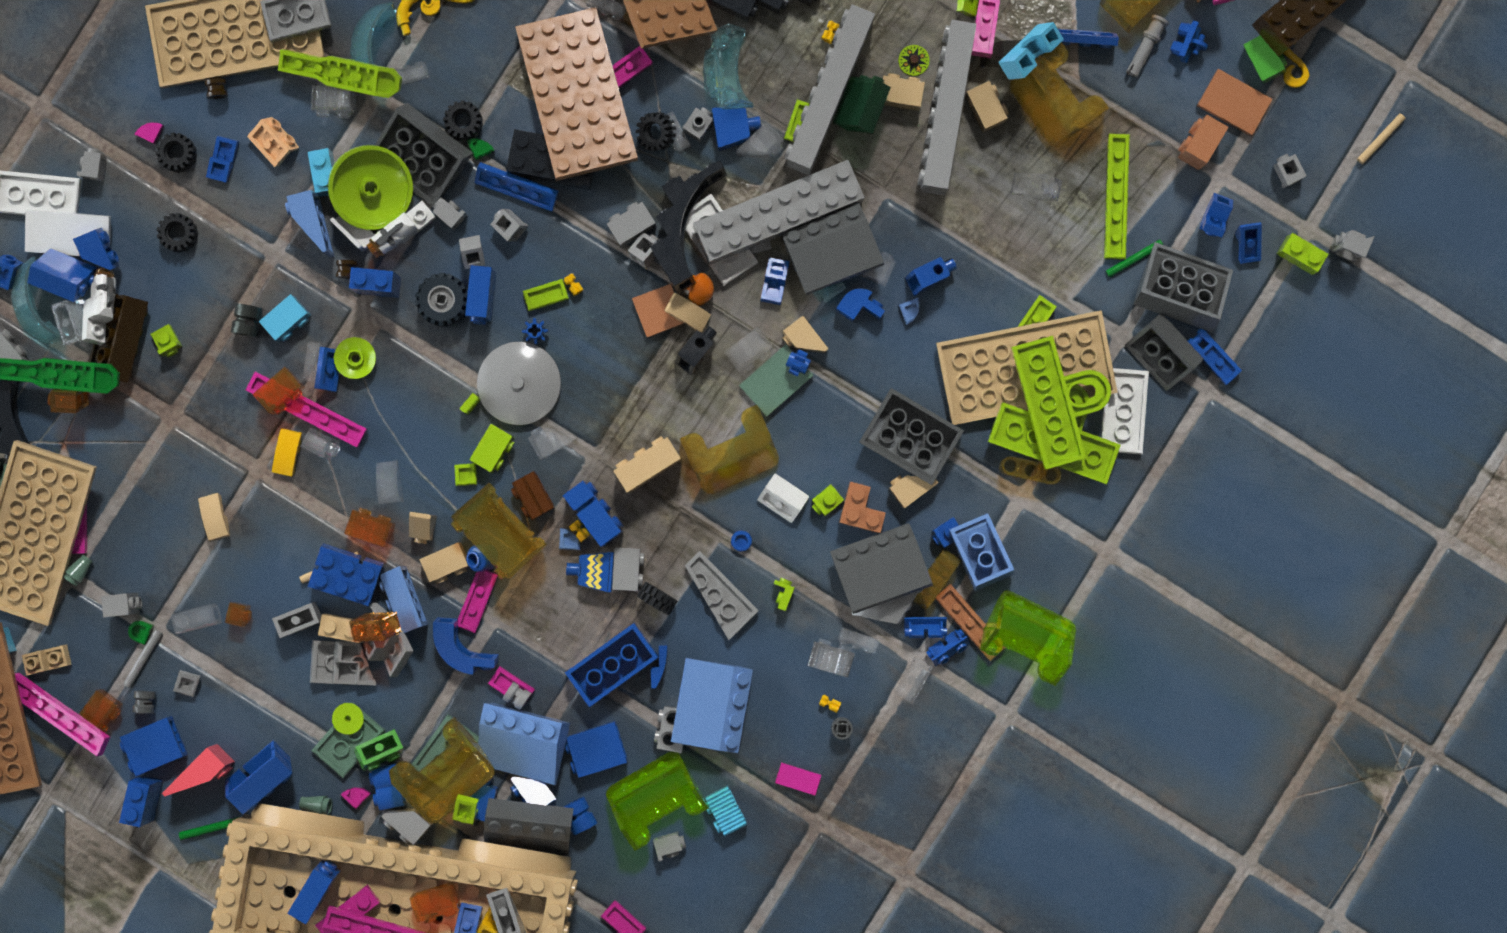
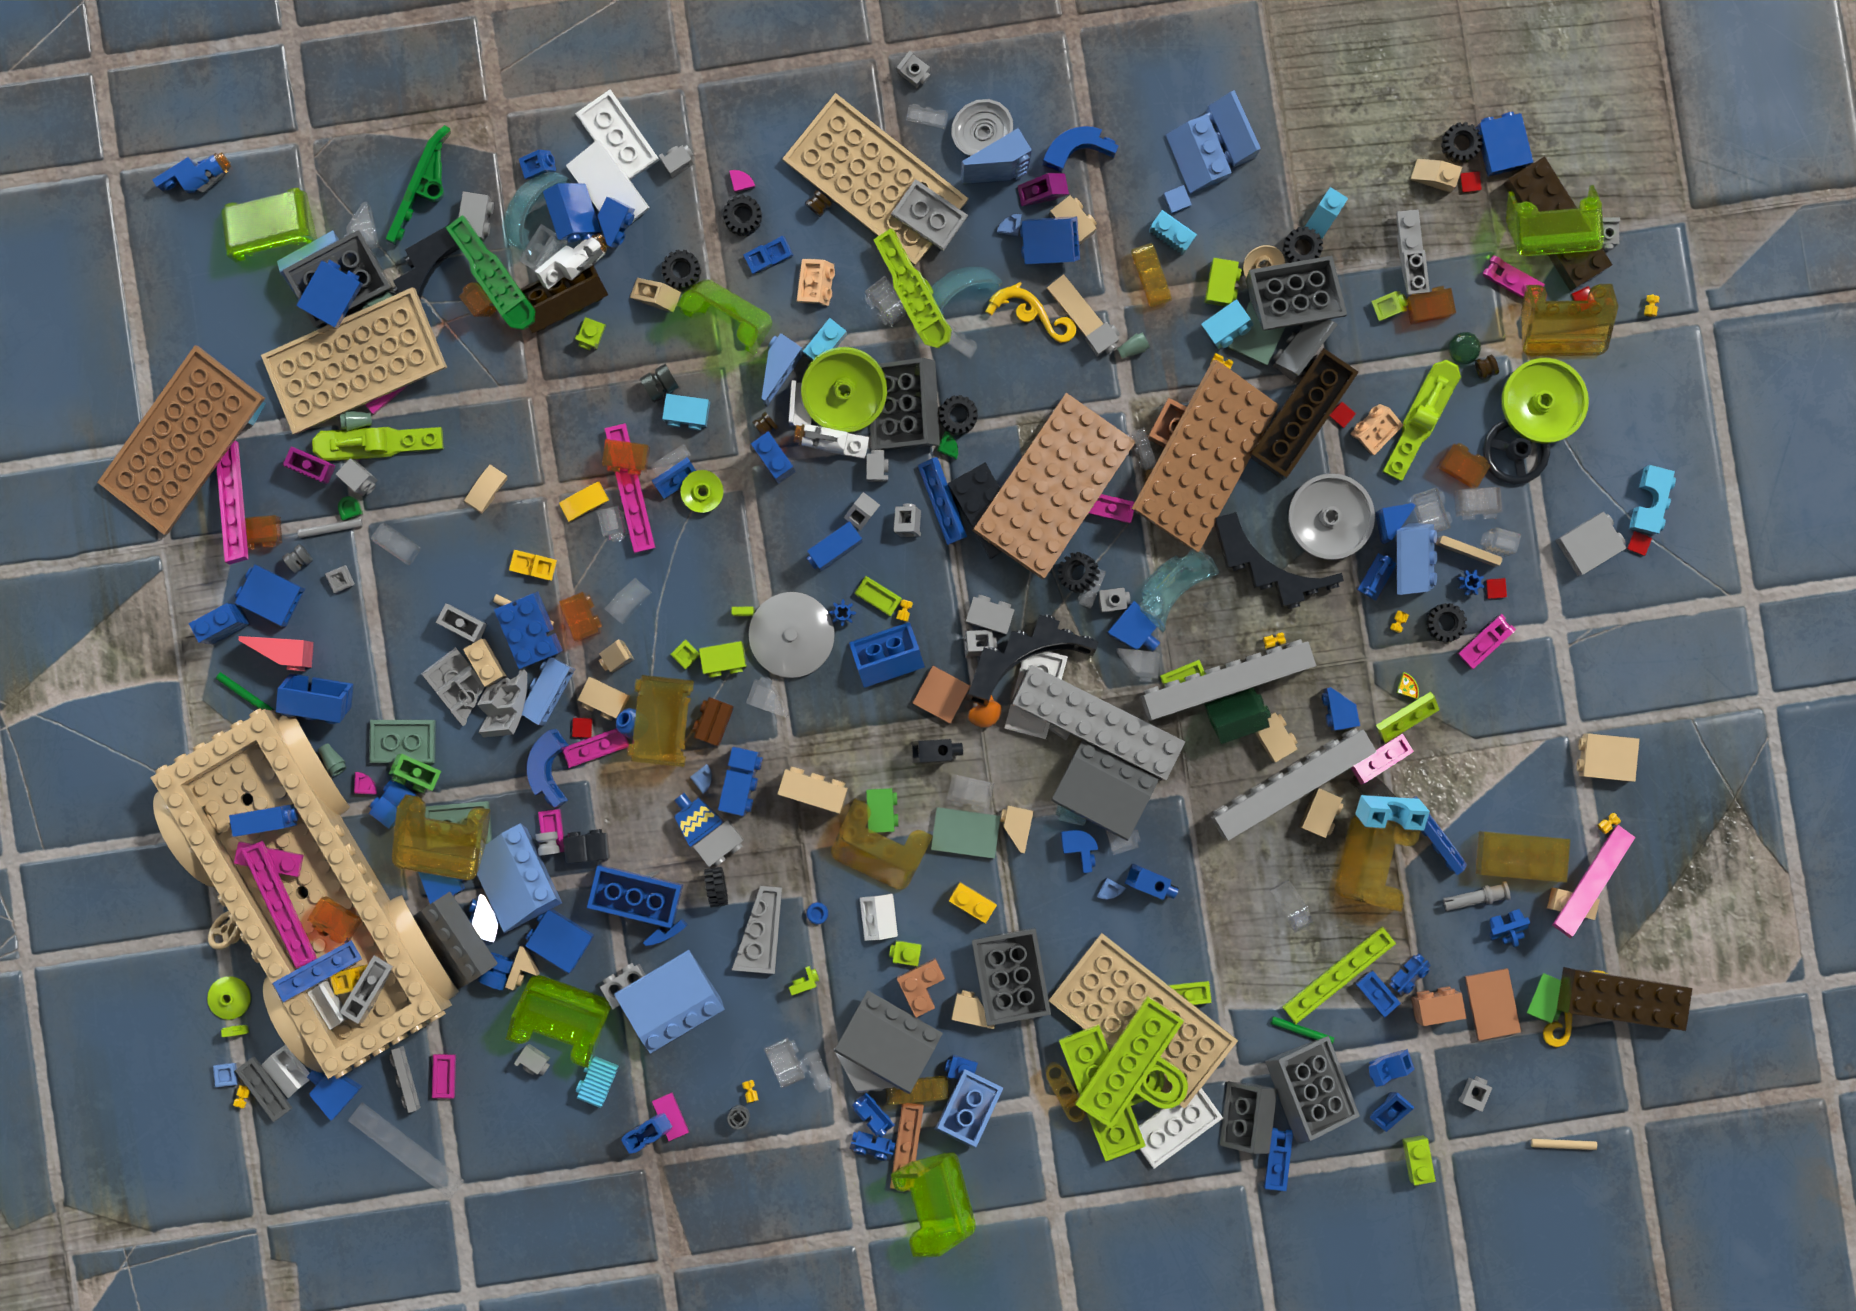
camera: 45 degrees right, 0 degrees up
(46, 659) = (264, 454): tan slope -> none
(81, 633) = (309, 465): none -> magenta brick
(108, 570) = (374, 442): none -> lime piece
(179, 266) = (655, 294): none -> tan slope
(238, 614) = (427, 573): clear orange plate -> none
(262, 212) = (754, 321): none -> clear neon green windscreen
(301, 531) = (532, 565): none -> yellow slope
(347, 718) = (418, 727): lime piece -> none
(375, 626) = (507, 689): clear orange brick -> none
(408, 823) = (377, 844): light grey slope -> none
(442, 299) = (805, 520): black wheel -> none
(453, 597) = (582, 727): none -> red piece
(465, 809) = (426, 880): lime bracket -> none
(545, 669) = (586, 847): none -> black brick
(581, 534) = (716, 784): yellow piece -> none
(589, 790) = (522, 963): none -> tan slope
(594, 325) = (886, 654): none -> blue slope
(687, 312) = (958, 718): tan slope -> none
(708, 428) = (882, 812): none -> bright green brick
(774, 281) = (1042, 764): slope -> none
(795, 806) = (646, 1133): none -> blue brick
(798, 362) = (993, 839): blue gear -> none
(831, 418) = (972, 902): none -> yellow brick
(913, 60) = (1309, 724): piece -> none
(913, 680) = (823, 1141): clear brick -> none
(924, 27) = (1341, 711): none -> blue slope
(1154, 179) = (1378, 993): none -> blue plate
(1161, 135) = (1416, 968): none -> blue hinge
(1351, 245) = (1458, 1193): light grey window -> none

